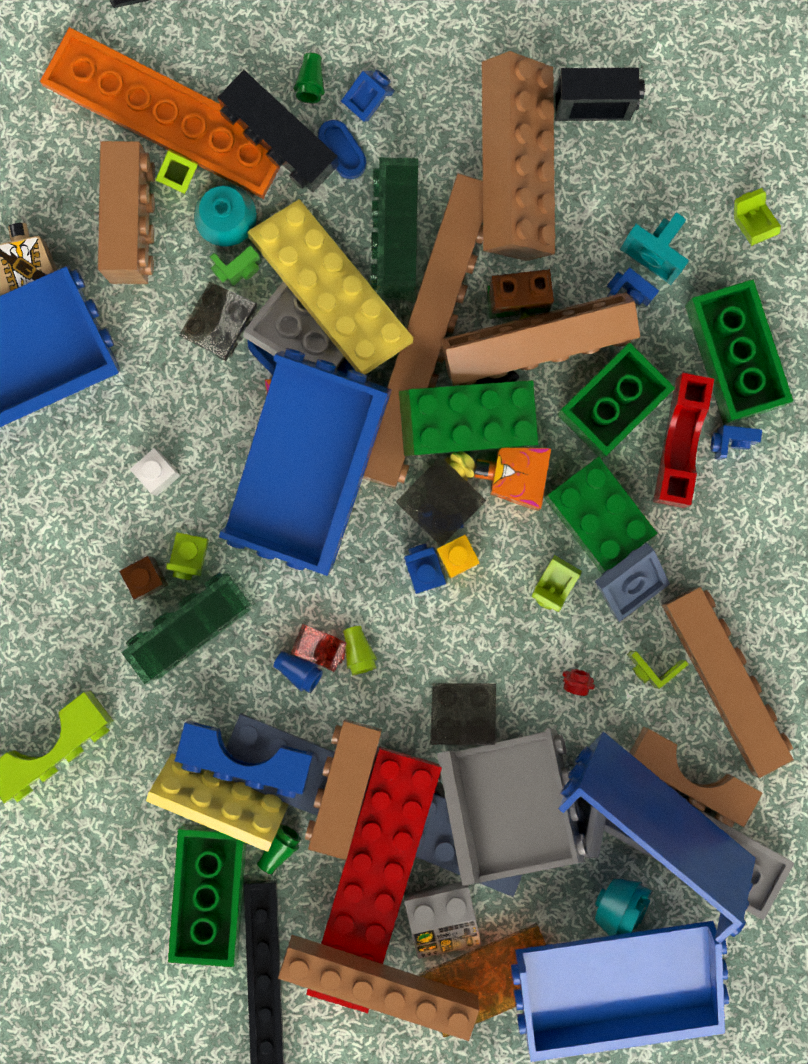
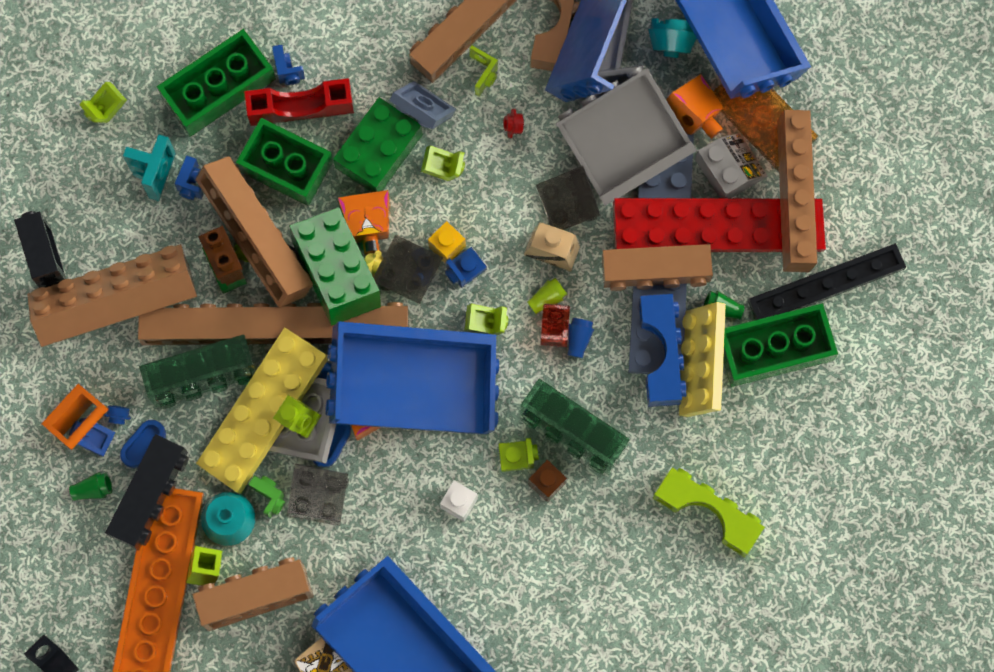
camera: 110 degrees left, 10 degrees down
(302, 318) = (297, 416): none -> lime brick
(352, 571) = (486, 319): none -> lime bracket
(383, 130) = (117, 414): none -> blue plate
(400, 73) = (70, 411): none -> orange tile
(413, 675) = (553, 246): none -> tan torso
(525, 904) = (696, 107): none -> orange torso

